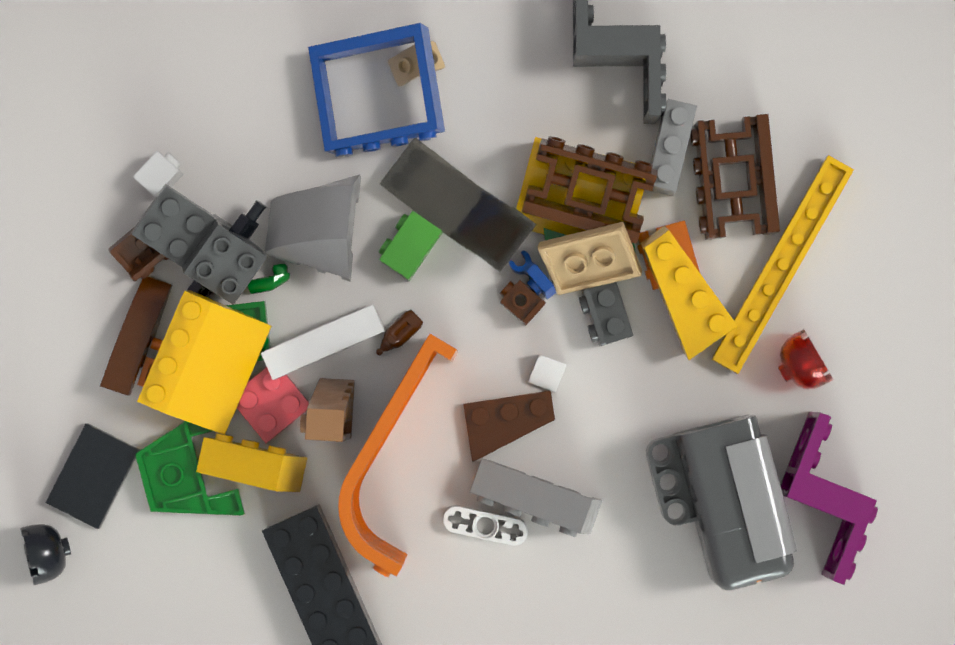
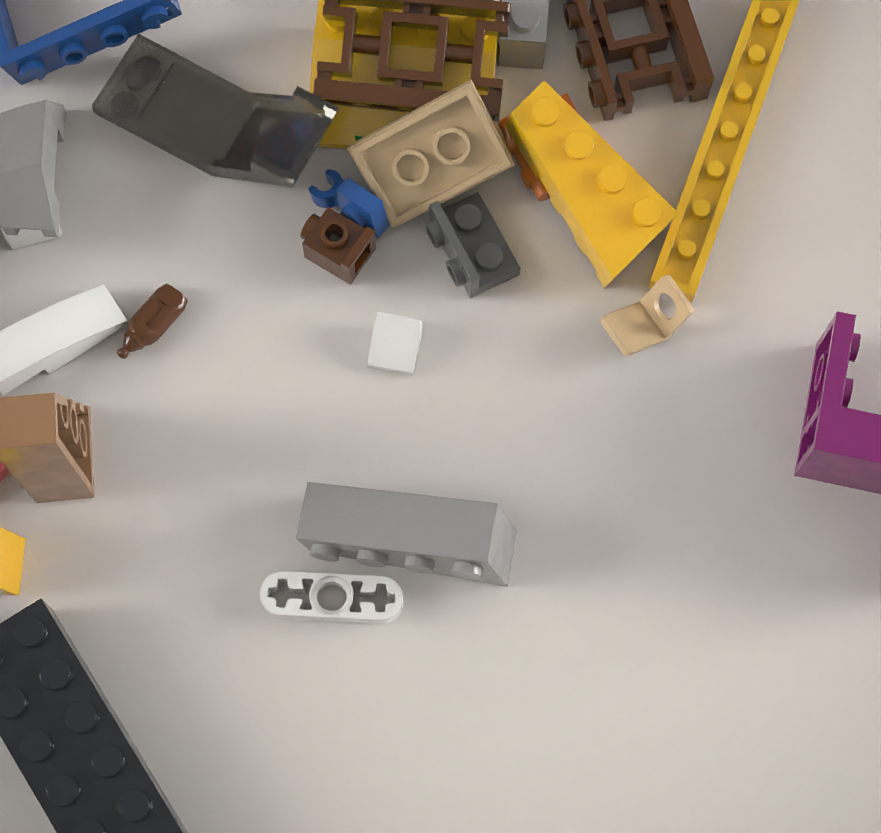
camera: 10 degrees left, 15 degrees down
(385, 556) = (130, 450): orange panel -> none
(410, 245) = (151, 187): bright green brick -> none
(504, 420) = (338, 426): reddish brown wing -> none
(703, 383) = (643, 323): none -> tan bracket
(732, 496) = (723, 469): dark grey piece -> none
(802, 362) = (794, 258): clear red cylinder -> none

